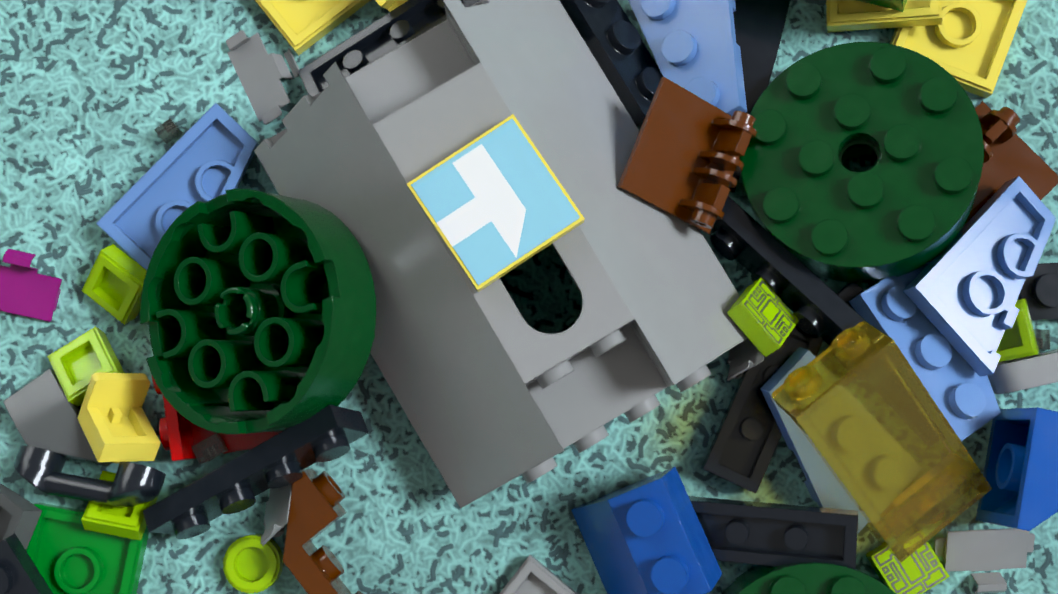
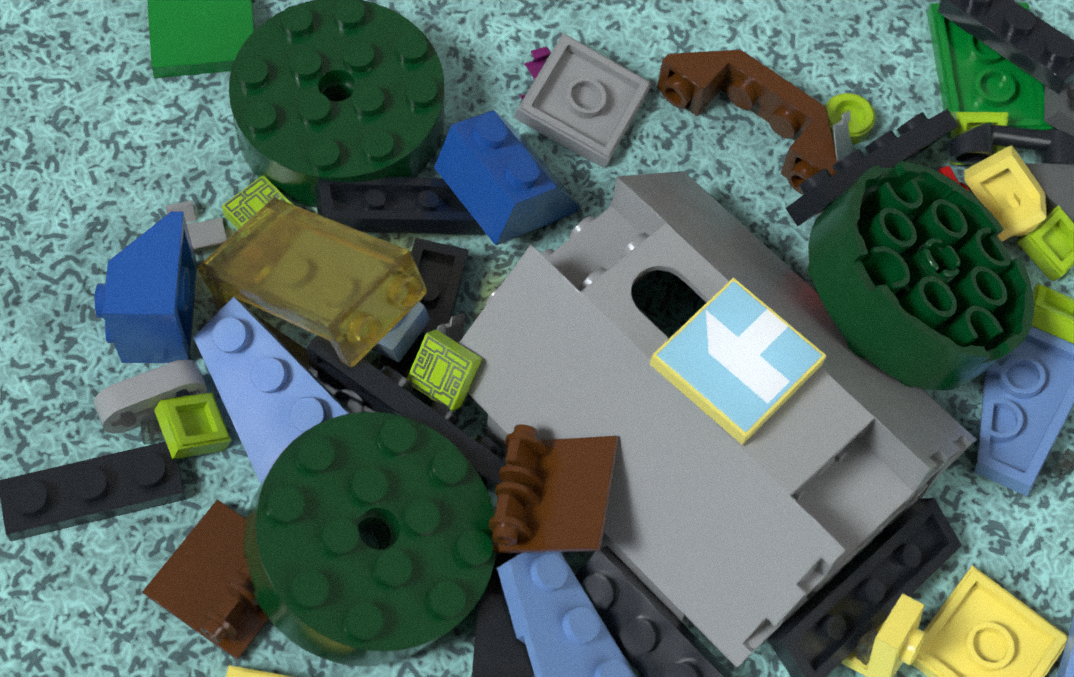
camera: 160 degrees right, 20 degrees down
(261, 74) = (995, 539): light grey piece -> none
(979, 276) = (227, 457): wing -> none

